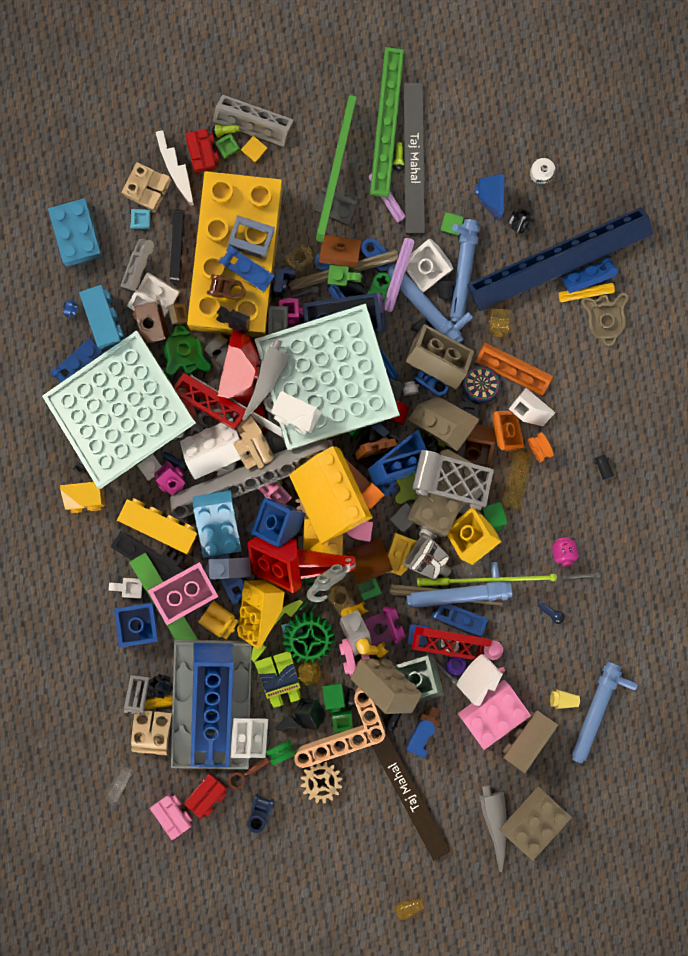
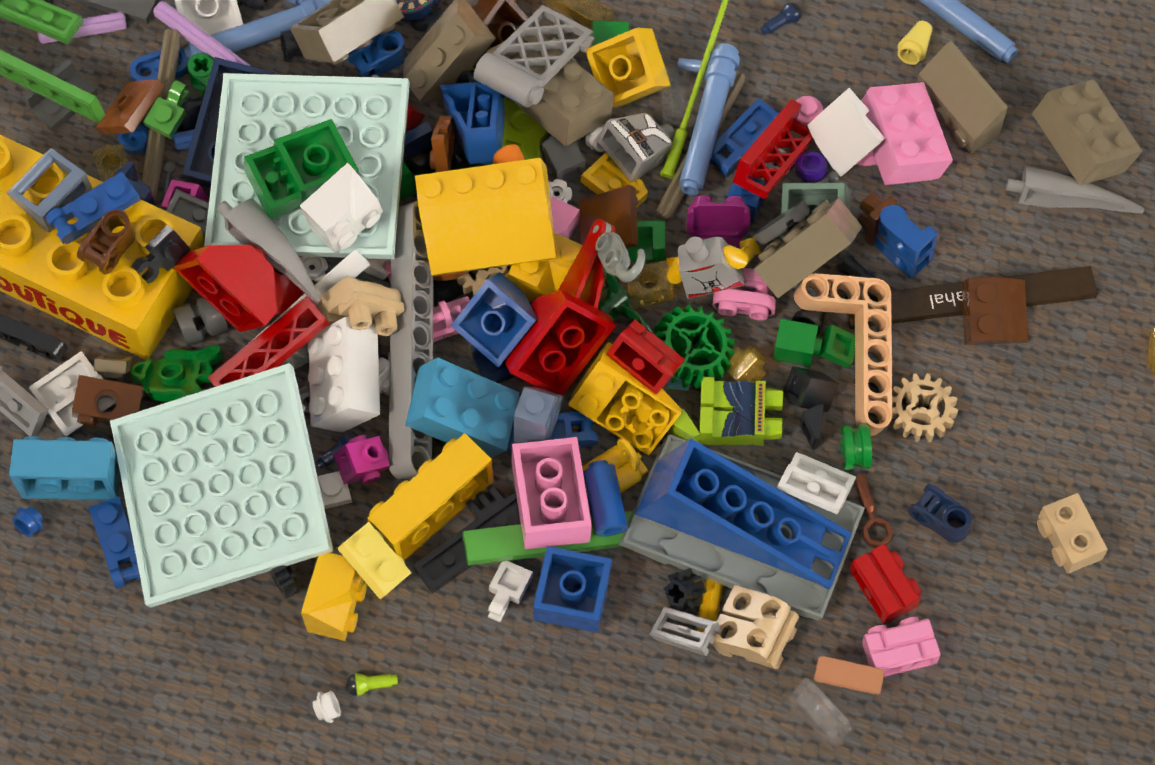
camera: 65 degrees left, 20 degrees down
(25, 516) = (326, 706): none -> white plate
(45, 528) = (358, 684): none -> lime piece
(105, 511) = (374, 560): none -> light yellow bracket
(141, 793) = (849, 675): none -> nougat slope
(194, 623) = (605, 499): none -> blue brick
(274, 890) = (1071, 533): none -> tan brick
(280, 617) = (645, 357): none -> red brick
(318, 376) = (296, 167): none -> green slope
(385, 522) = (560, 186): none -> white plate
(395, 804) = (994, 311): none -> reddish brown slope
(397, 664) = (781, 223): none -> dark grey tile

